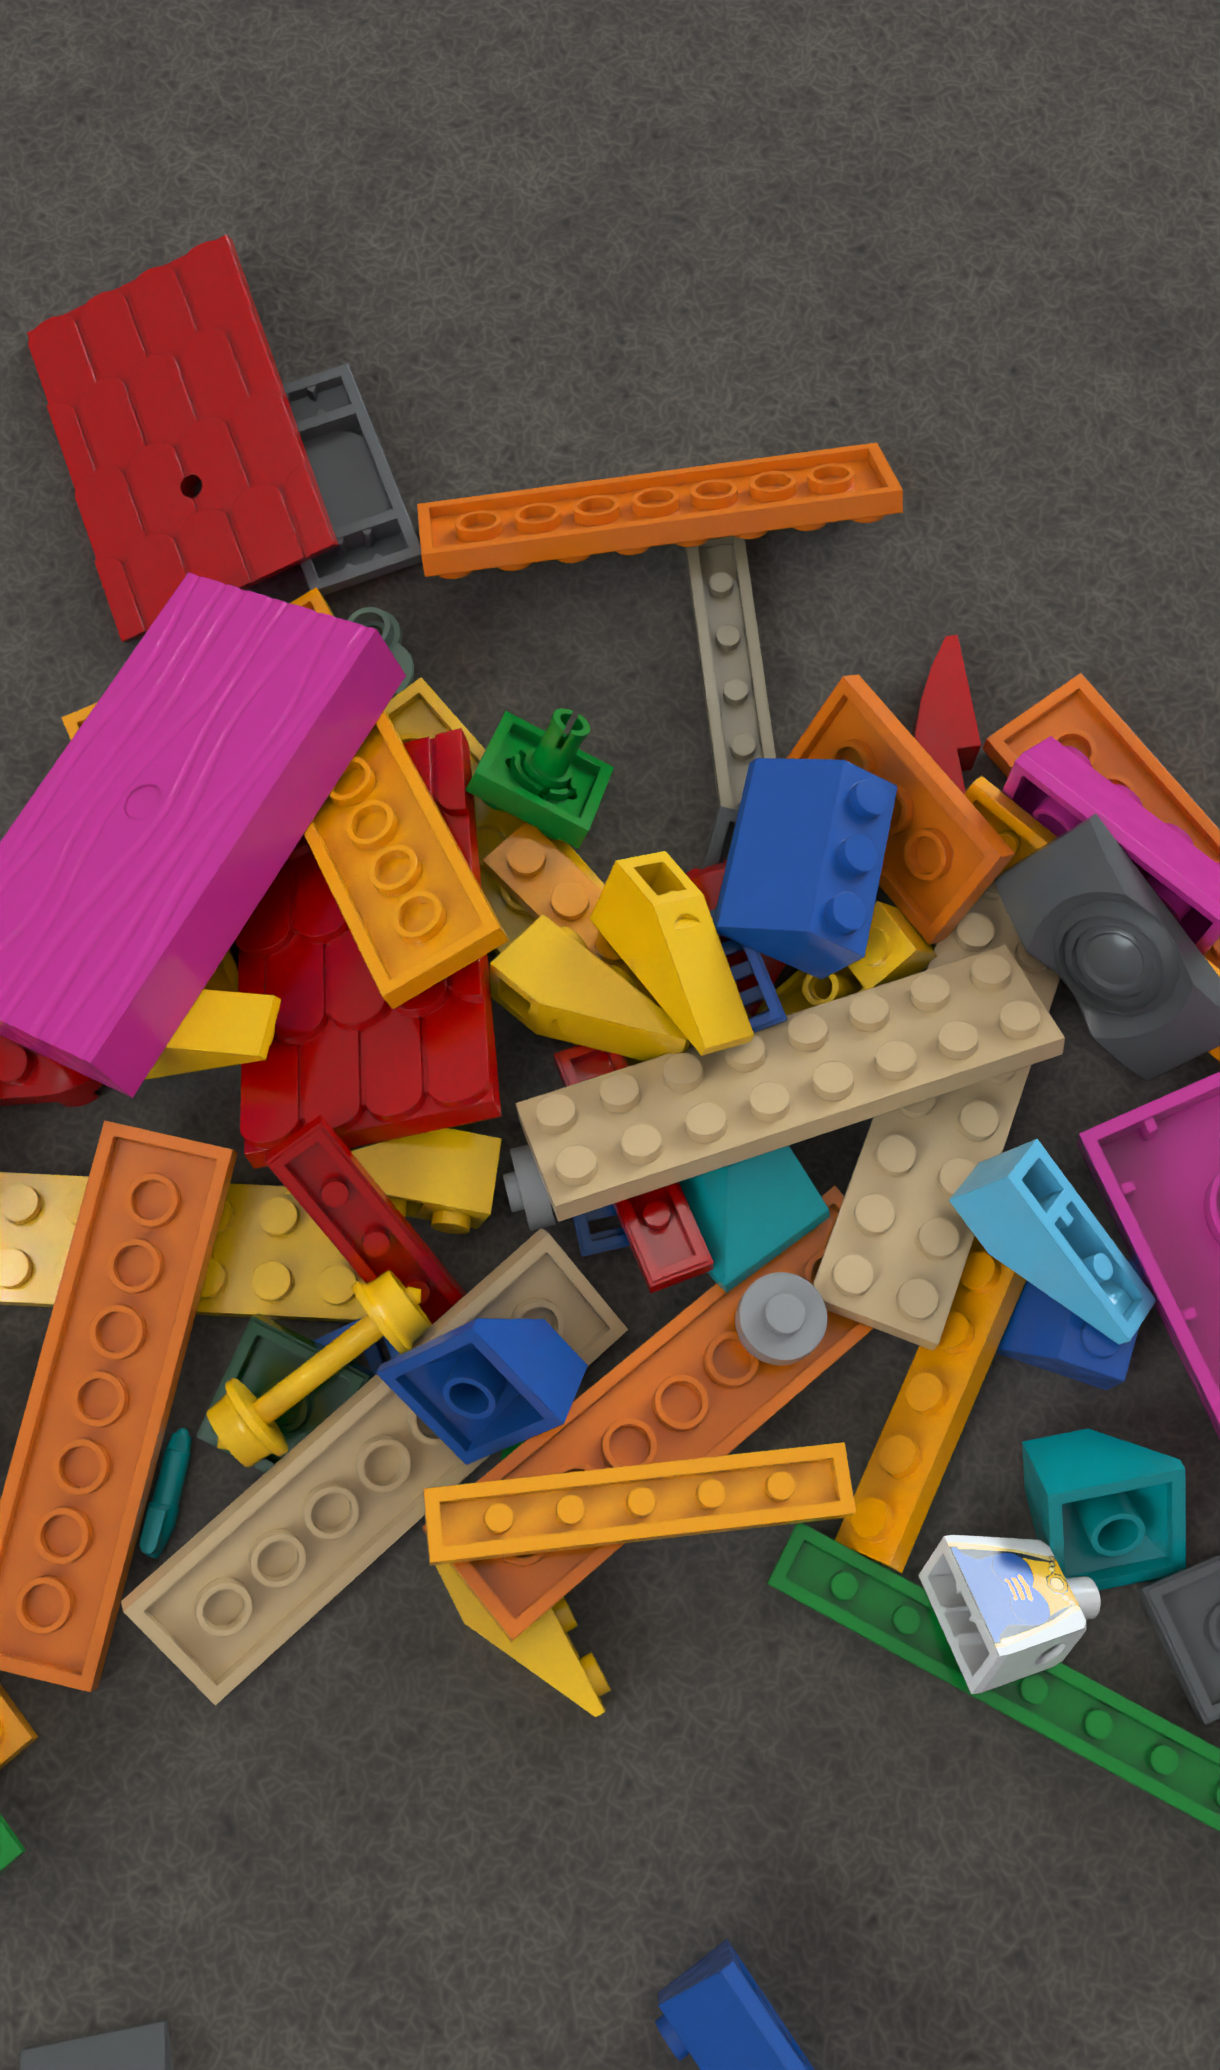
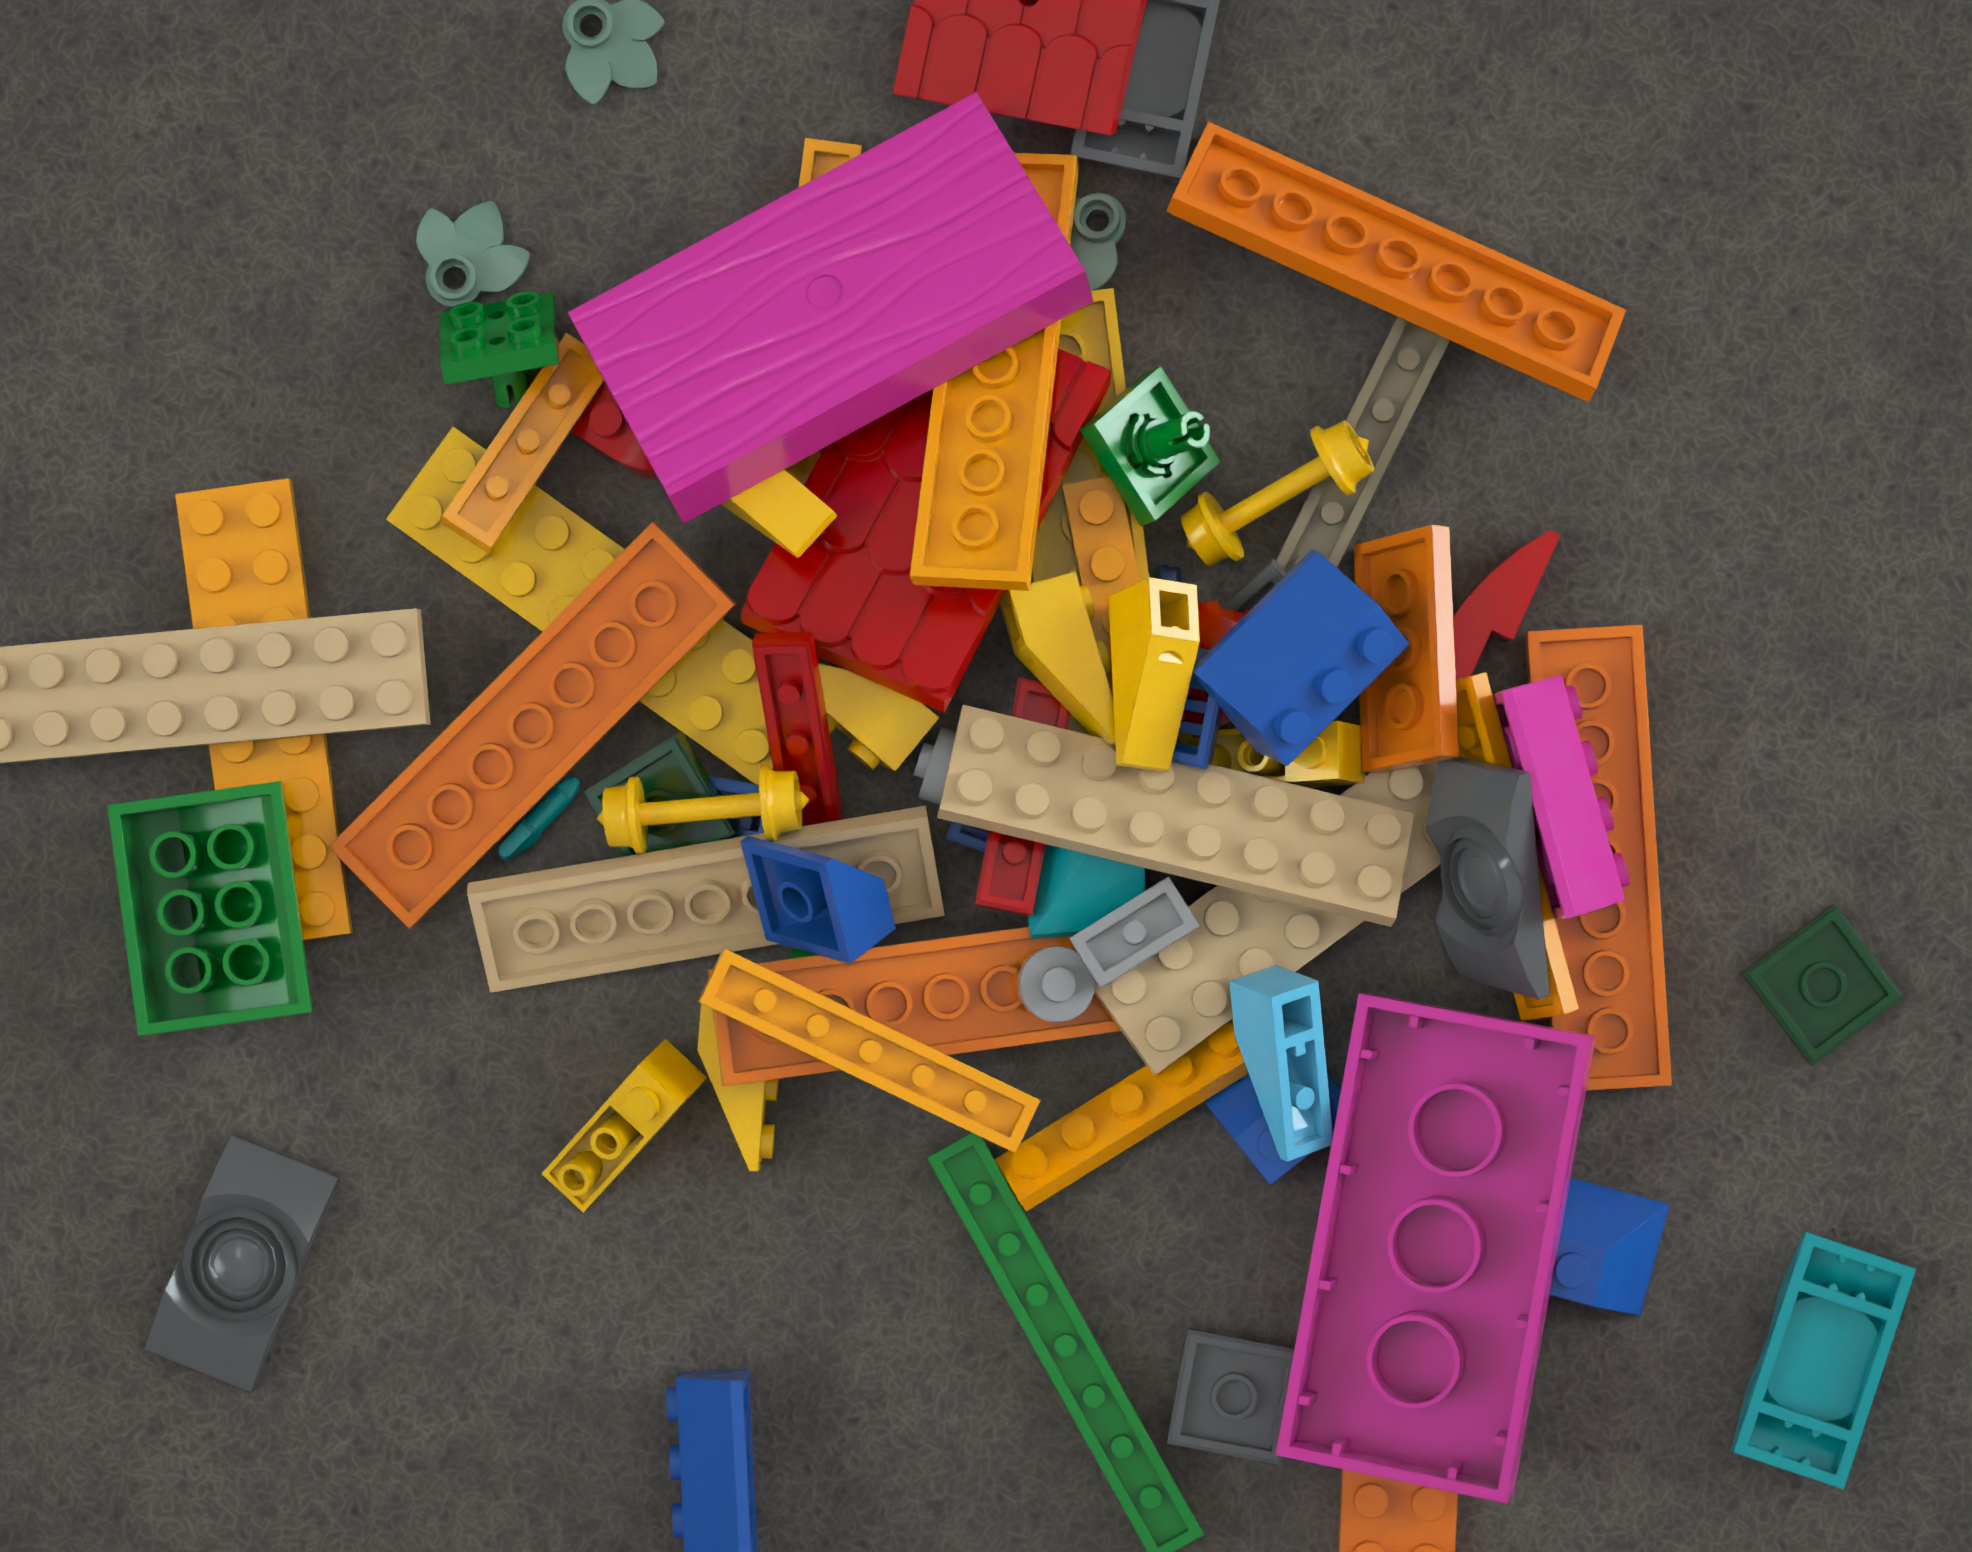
camera: 30 degrees right, 15 degrees up
(436, 1756) = (624, 1125): none -> yellow slope
(720, 679) = (1213, 530): none -> yellow piece
(824, 1216) = (1134, 932): none -> light grey plate
(1005, 1606) = (1081, 1280): torso -> none
(1106, 1506) = (1197, 1261): teal slope -> none

